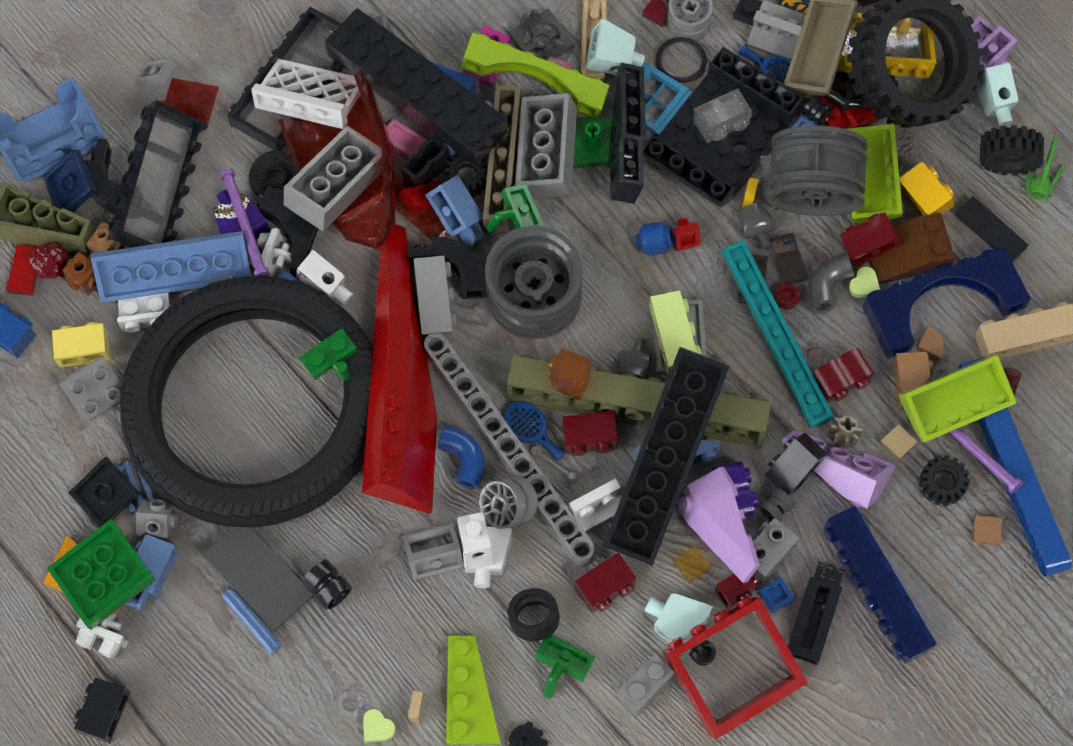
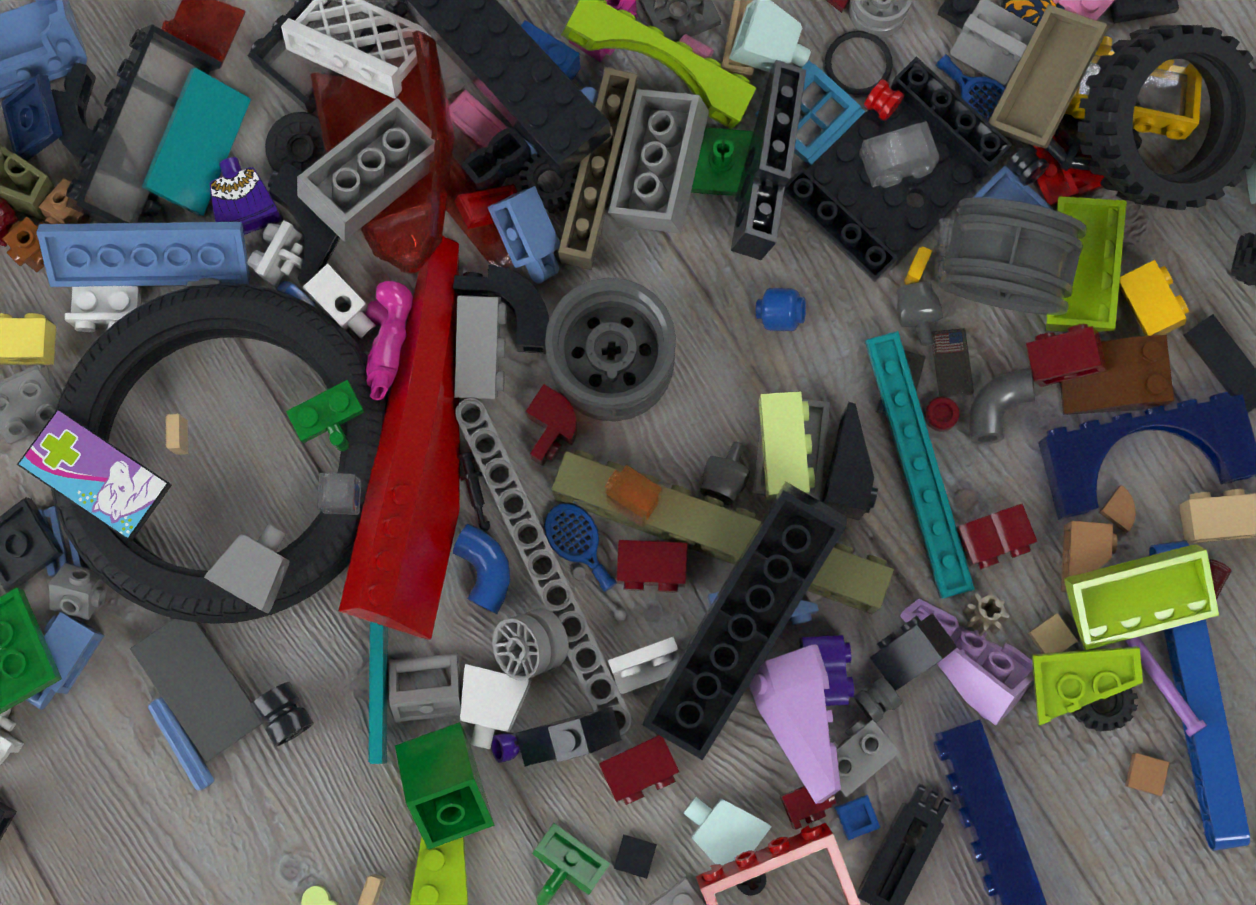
camera: 10 degrees right, 10 degrees up
(160, 425) = (94, 475): none -> tile
(197, 182) = (196, 141): none -> teal tile
(219, 385) = (177, 434): none -> tan tile
(228, 177) = (235, 142): medium lavender bar -> none
(291, 473) = (252, 569): none -> light grey torso
(349, 408) = (339, 493): none -> clear brick
(364, 285) = (390, 314): none -> dark pink piece
(397, 557) = (378, 693): none -> teal tile
(443, 394) = (474, 488): none -> black piece
(460, 616) = (443, 786): none -> green slope
(475, 540) = (476, 692): white torso -> none
(499, 339) = (558, 418): none -> dark red brick
(500, 584) = (504, 747): none -> dark purple hinge
(519, 208) = (608, 247): green plate -> none
(533, 597) = (528, 773): black tyre -> none
(550, 561) = (569, 737): none -> black arch
(613, 649) = (635, 856): none -> black tile
(686, 235) = (823, 310): red tile -> none
(692, 564) = (755, 758): clear yellow tile -> none
(704, 79) = (883, 100): none -> red wheel
(727, 339) = (850, 470): none -> black slope
(864, 283) = (1047, 412): yellowish green tile -> none
(923, 463) = (1080, 677): none -> lime wing

